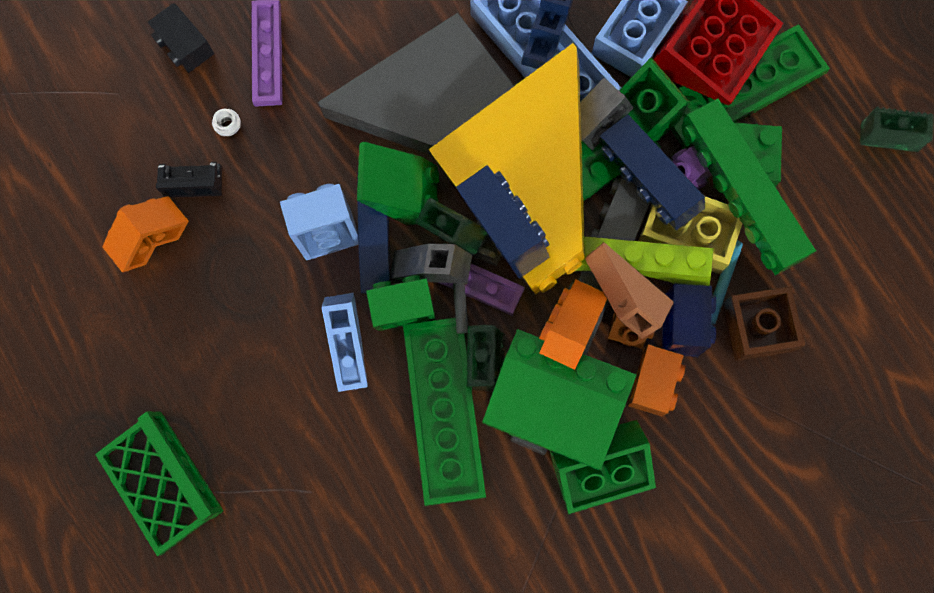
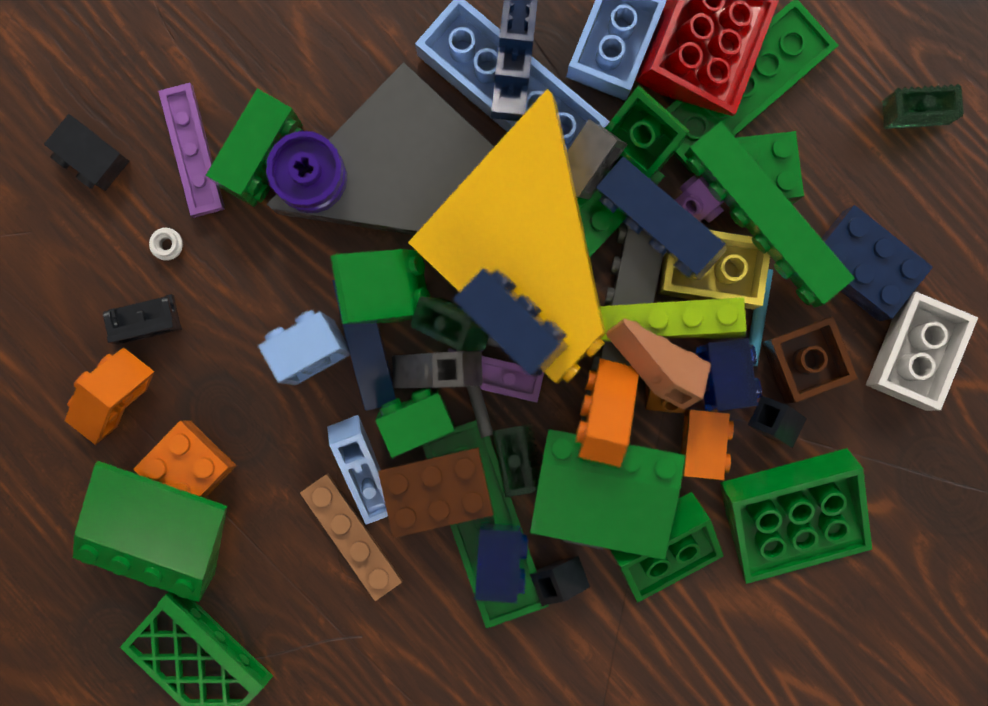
camera: 20 degrees left, 10 degrees up
(147, 352) = (149, 532): none -> green slope
(193, 307) = (186, 461): none -> orange brick
(319, 57) = (243, 158): none -> green brick
(323, 400) = (351, 537): none -> medium nougat plate
(356, 78) = (295, 156): none -> dark purple wheel
(406, 369) = (436, 492): none -> reddish brown brick
(448, 440) = (498, 563): none -> clear blue brick
(501, 474) = (560, 580): none -> black brick
(725, 372) = (777, 421): none -> black brick
(731, 463) = (798, 515): none -> green slope
(841, 257) = (881, 264): none -> dark blue brick
(867, 337) = (922, 352): none -> white brick

